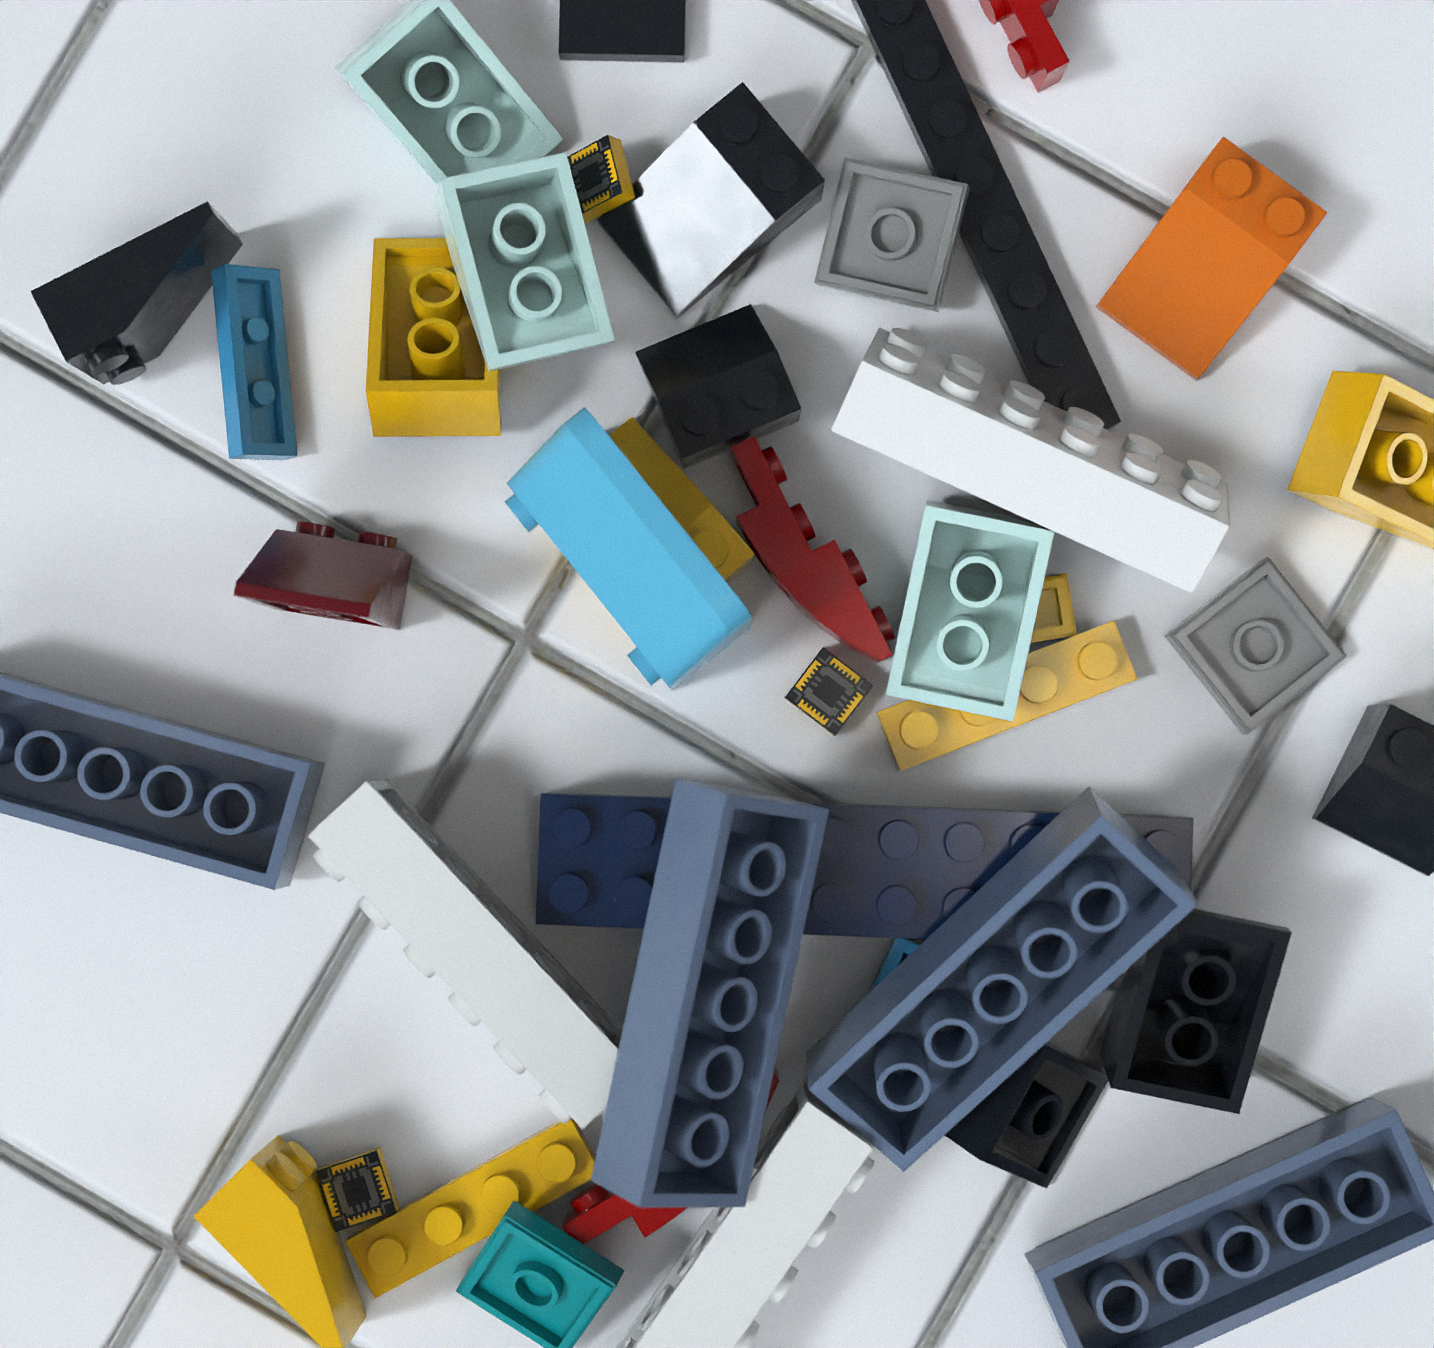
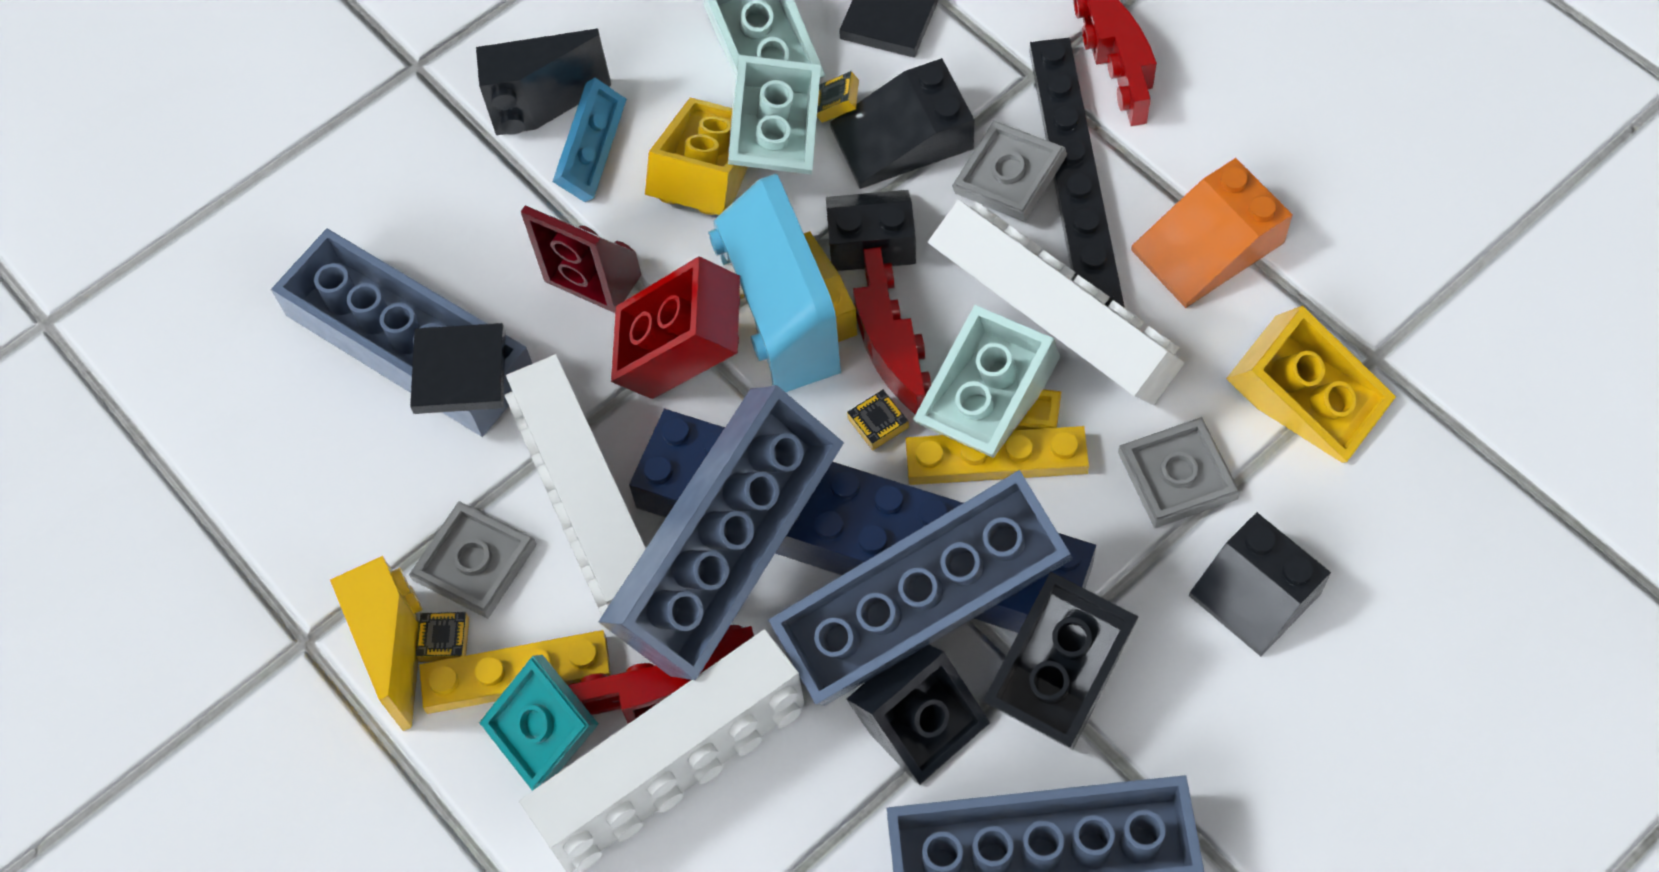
camera: 20 degrees right, 25 degrees down
(230, 833) = (458, 368): none -> black tile
(352, 1066) = (473, 559): none -> light grey tile
(516, 670) = (676, 328): none -> red brick

